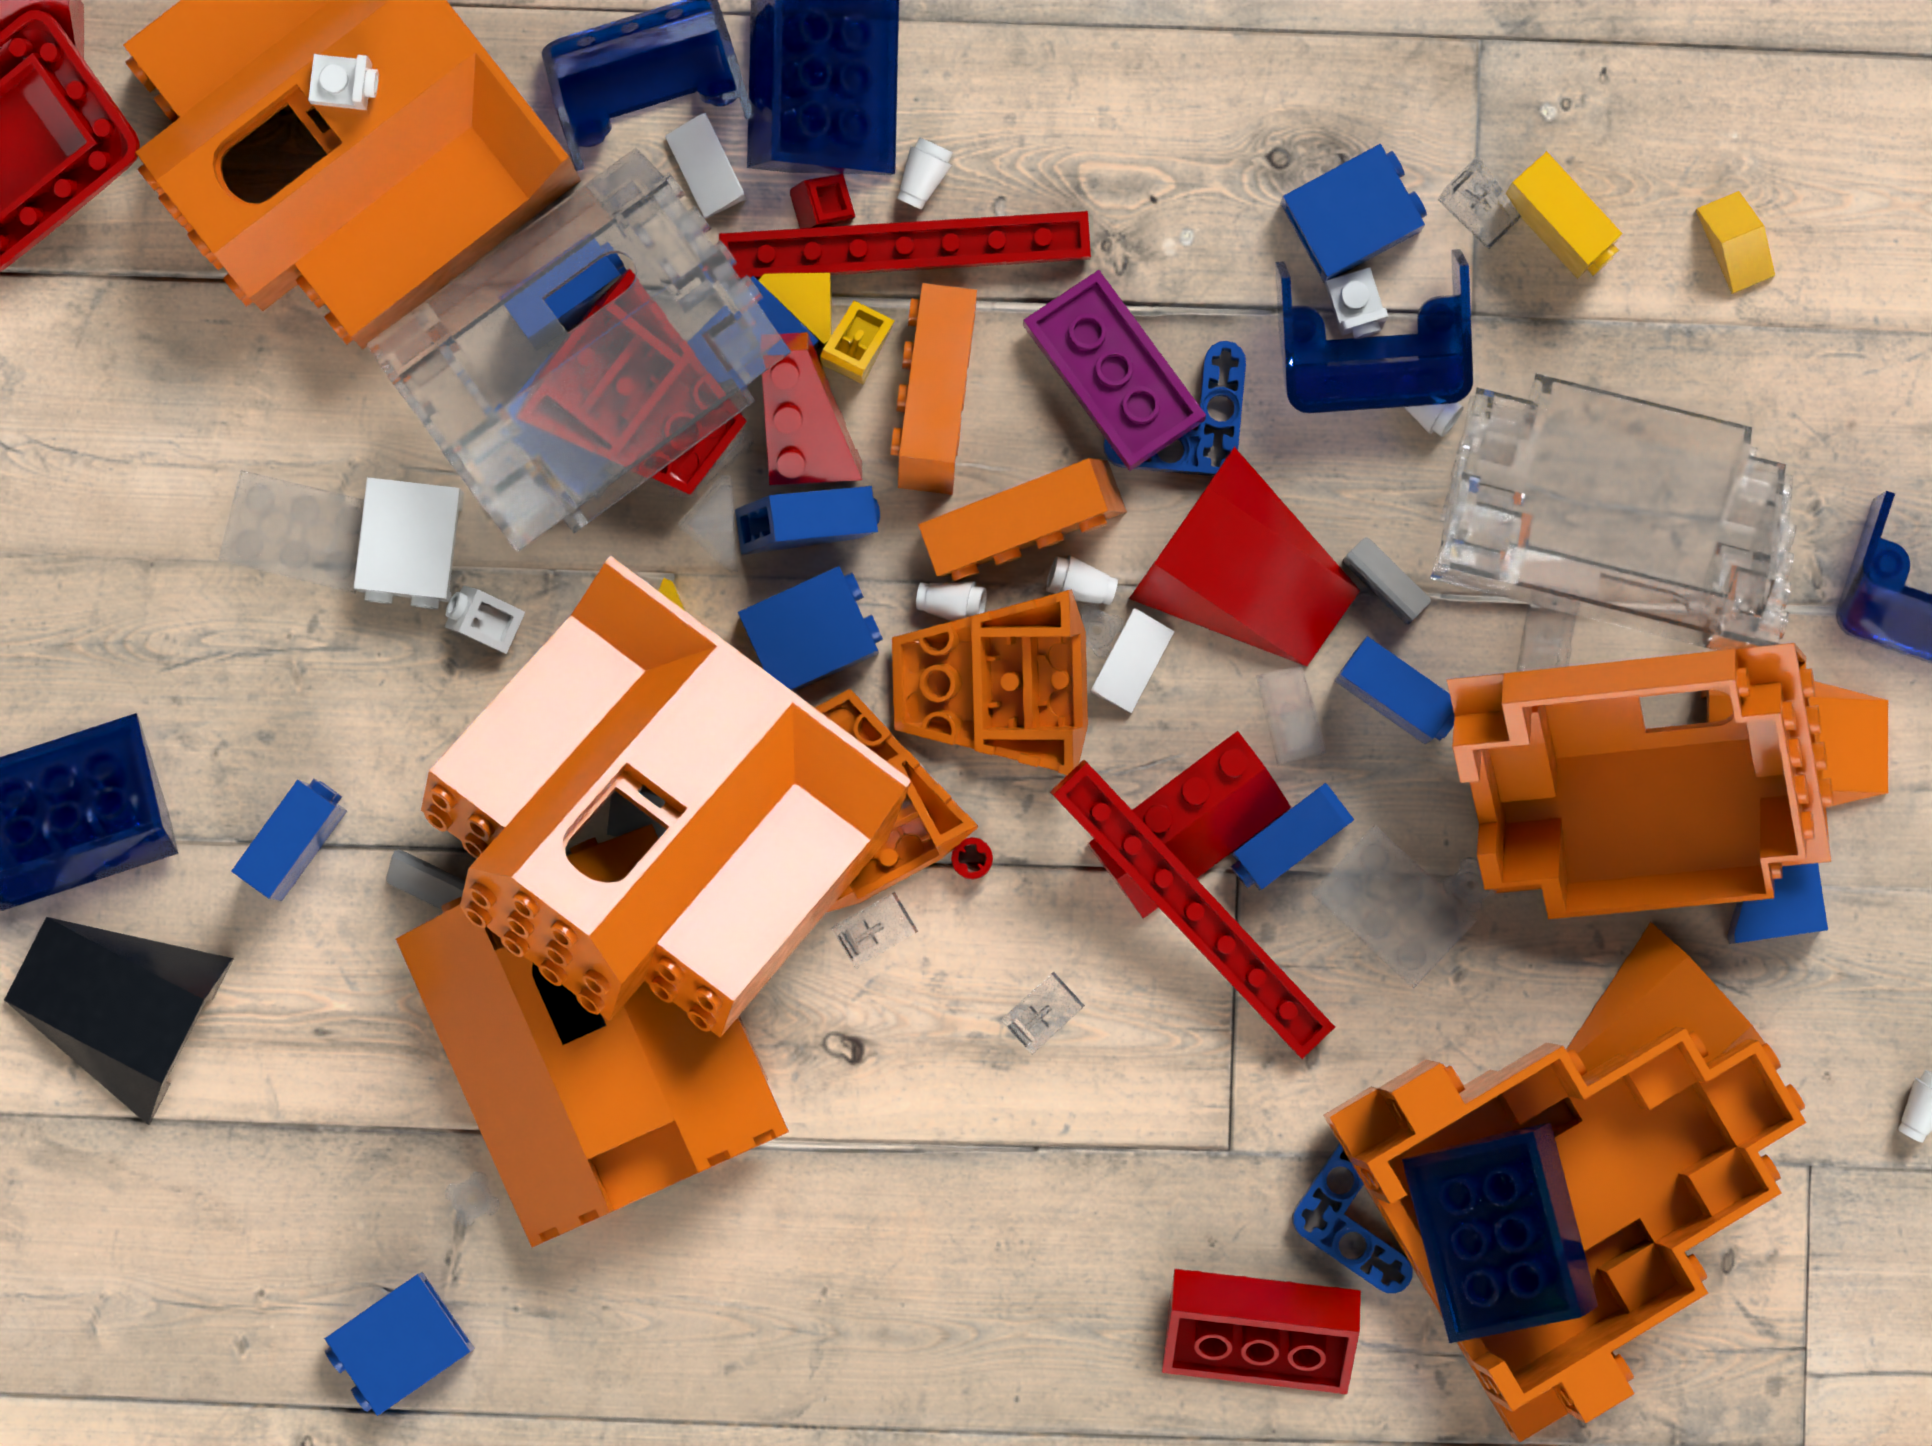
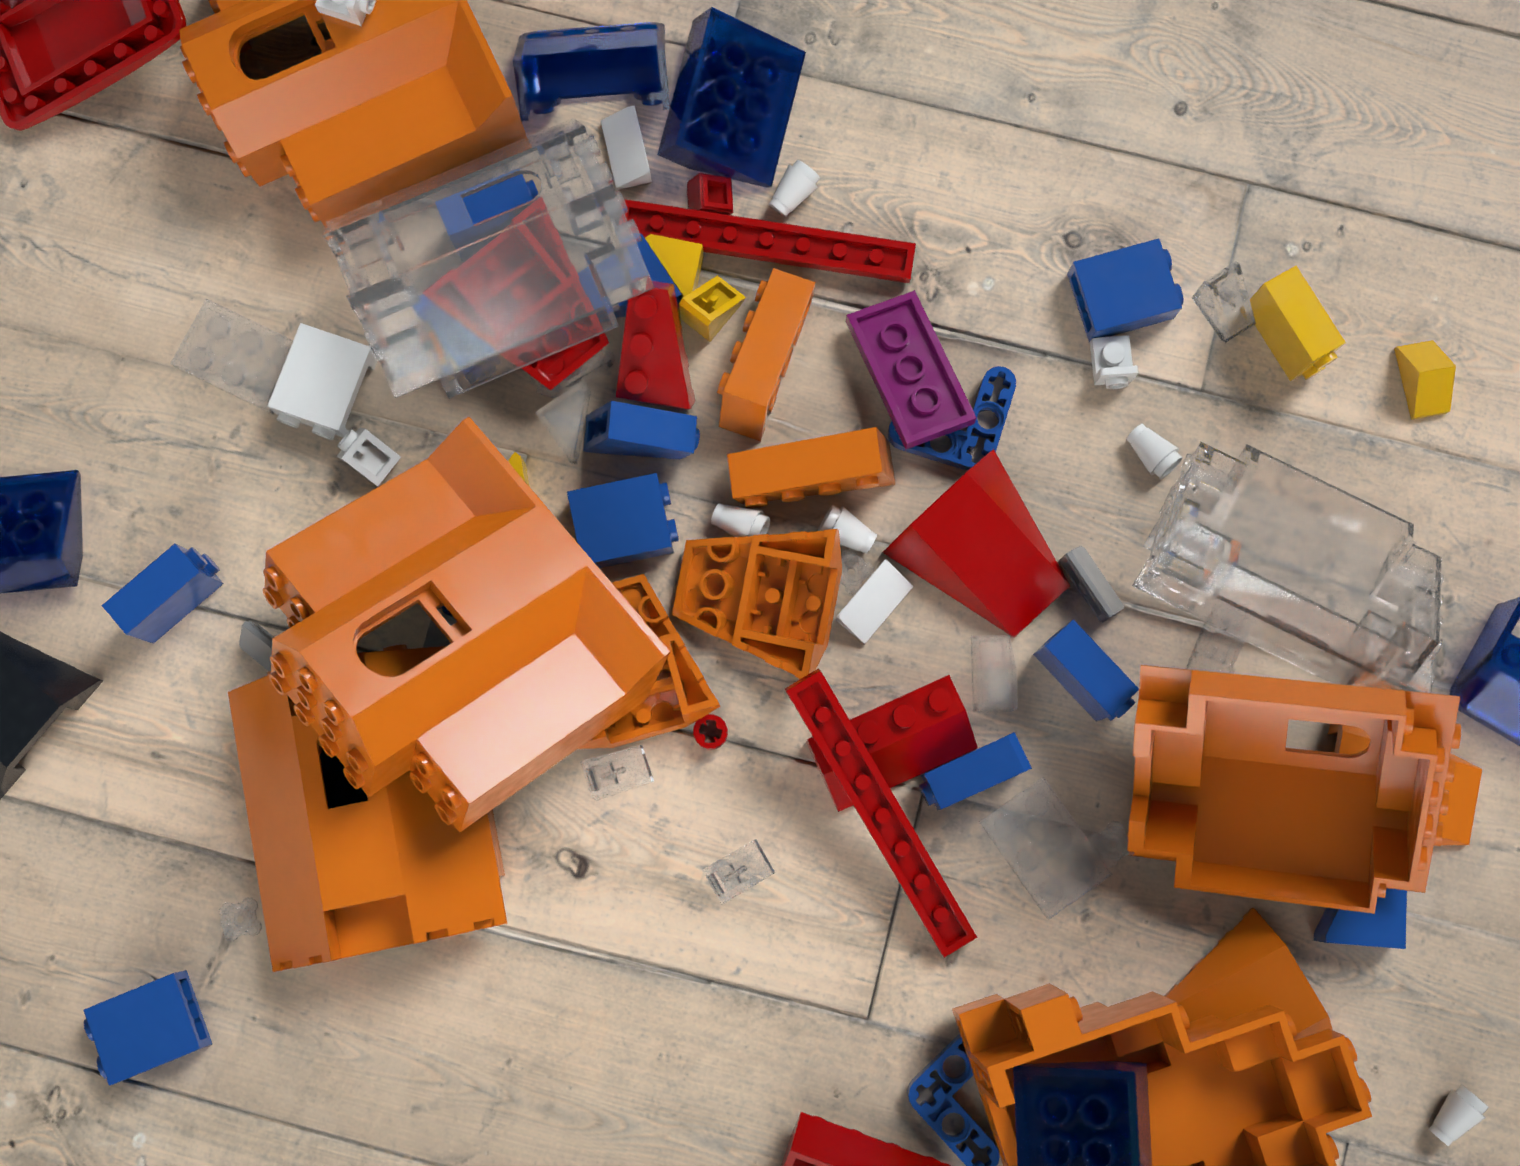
camera: 10 degrees right, 5 degrees down
(1378, 370) = (1158, 421): clear blue windscreen -> none

